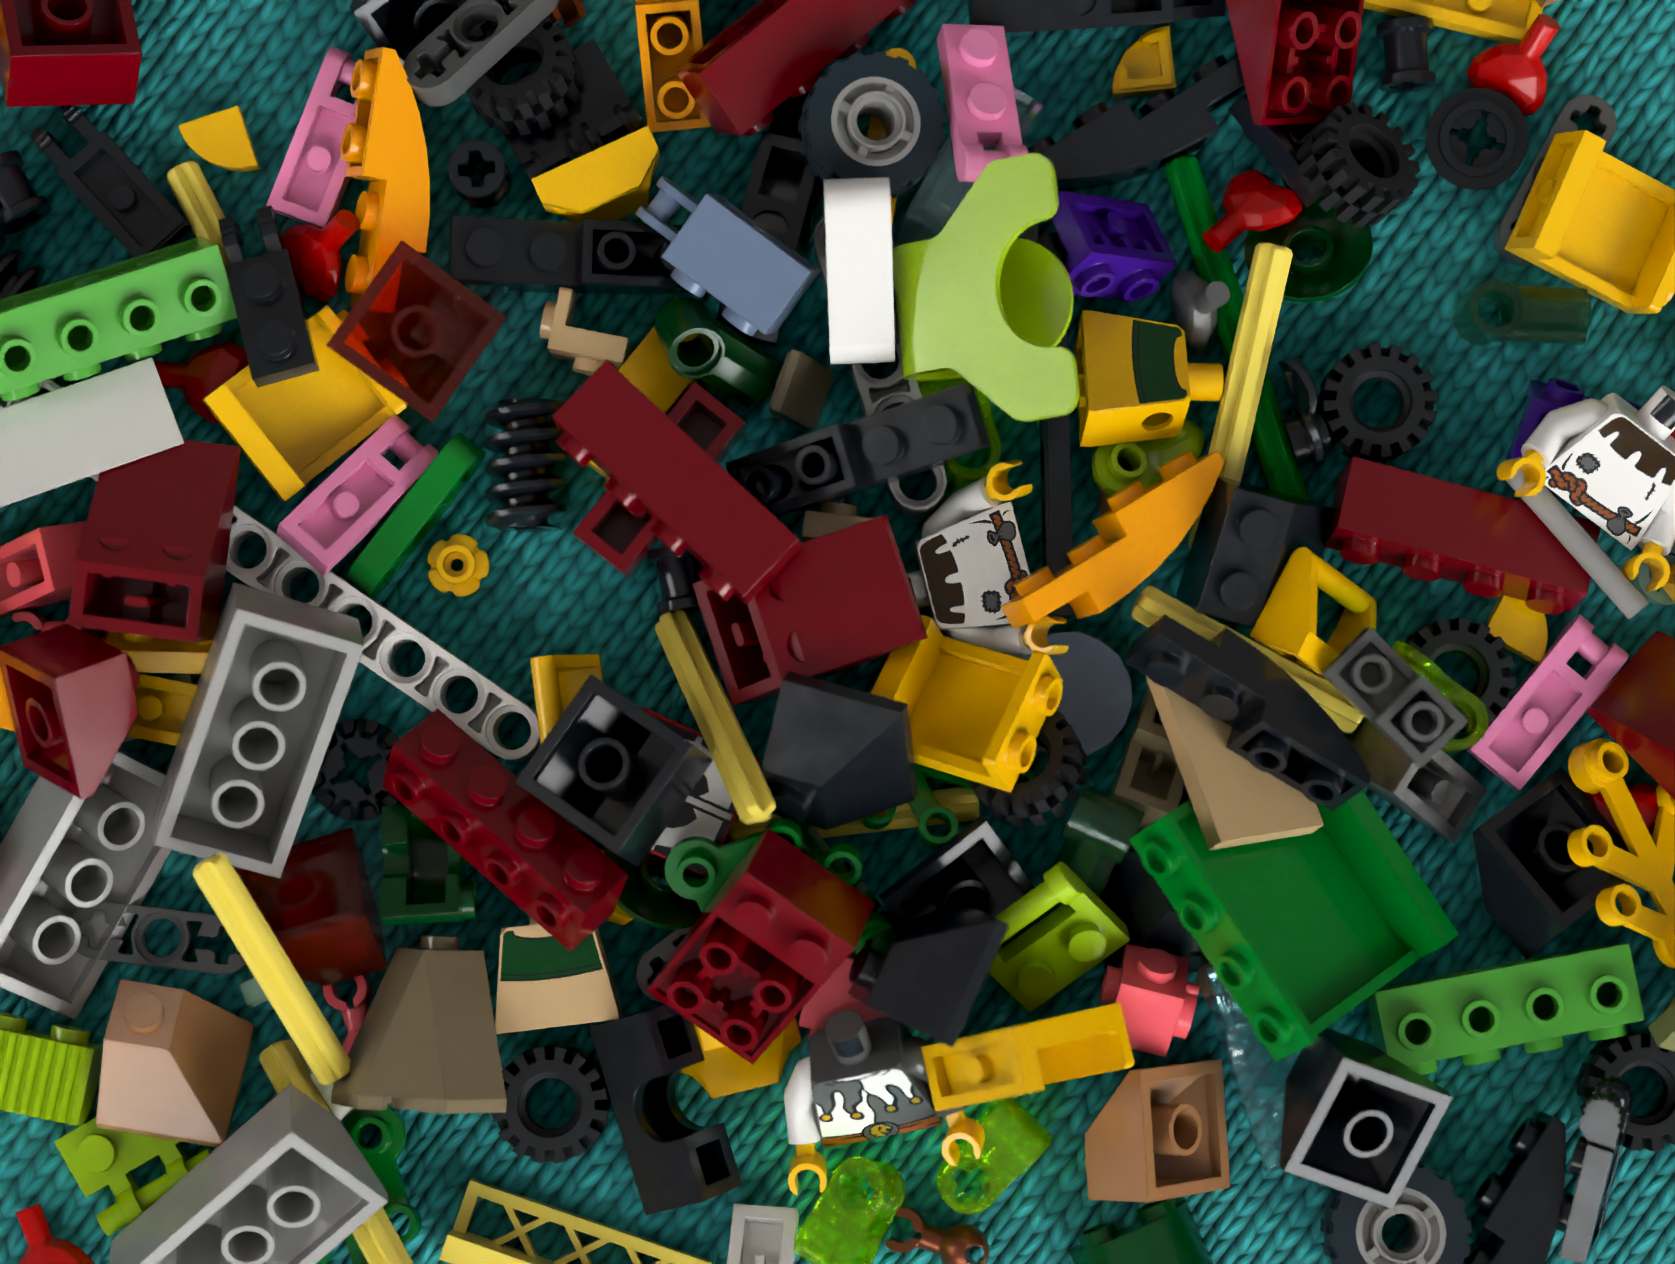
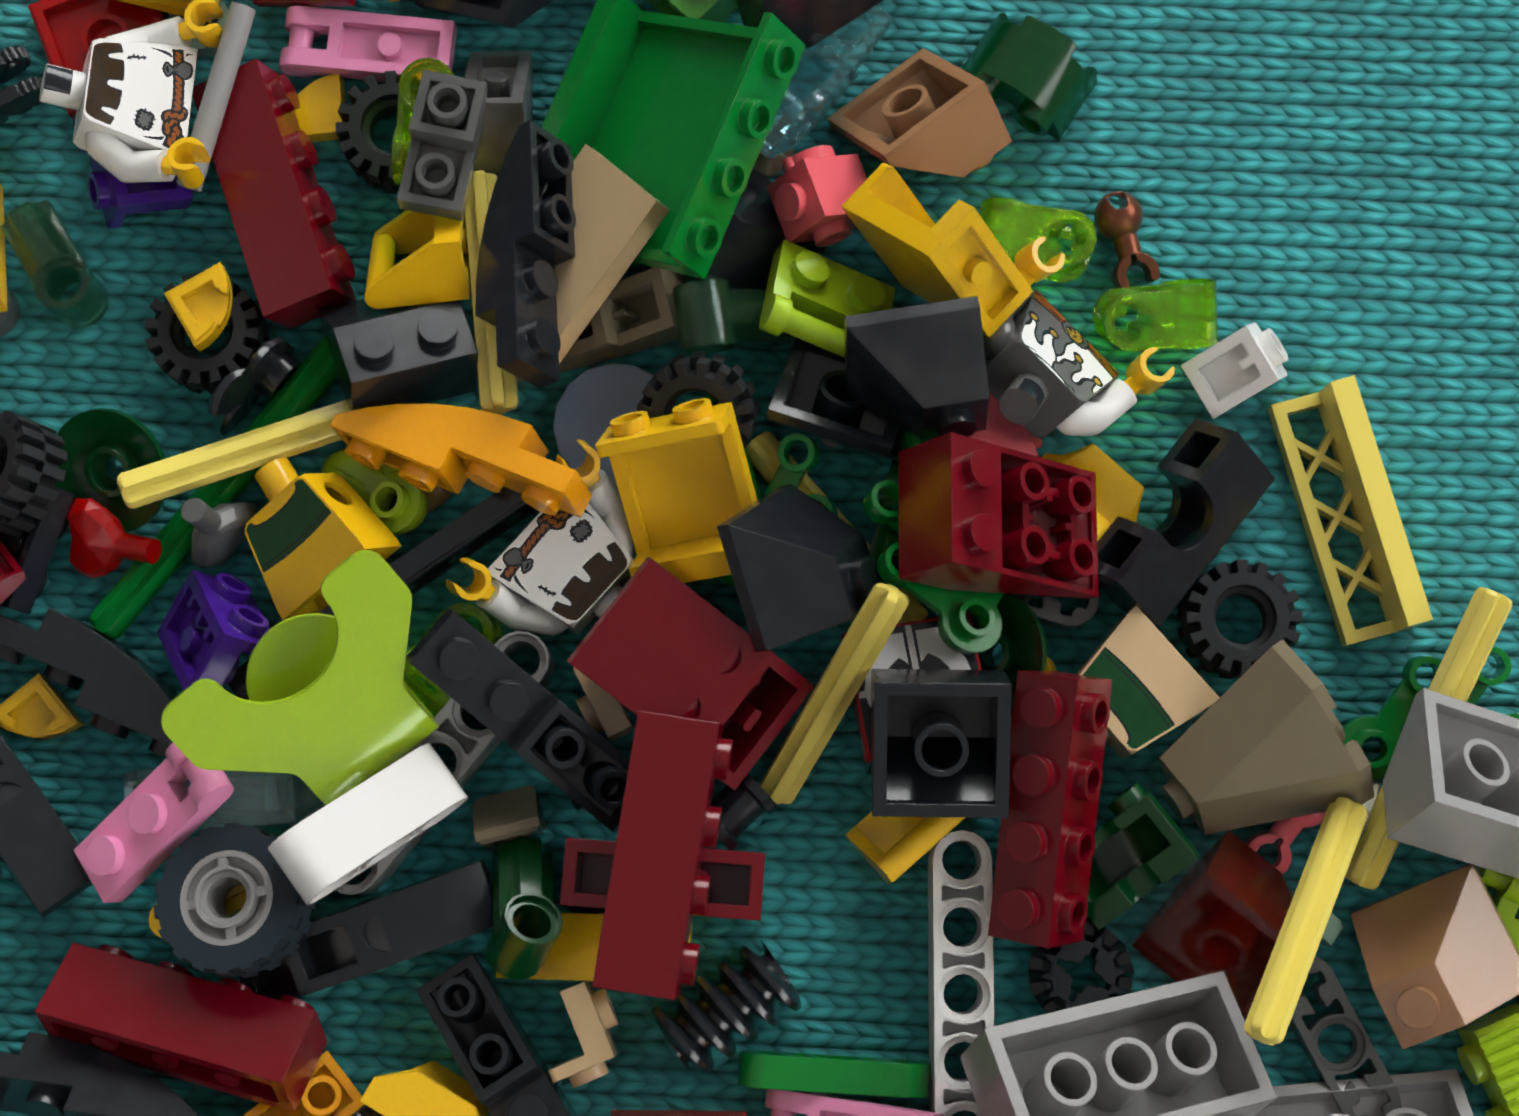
camera: 125 degrees left, 5 degrees down
(474, 568) = (834, 1013): yellow plate -> none
(729, 258) = (431, 947): sand blue brick -> none
(1397, 413) = (203, 305): none -> yellow tile

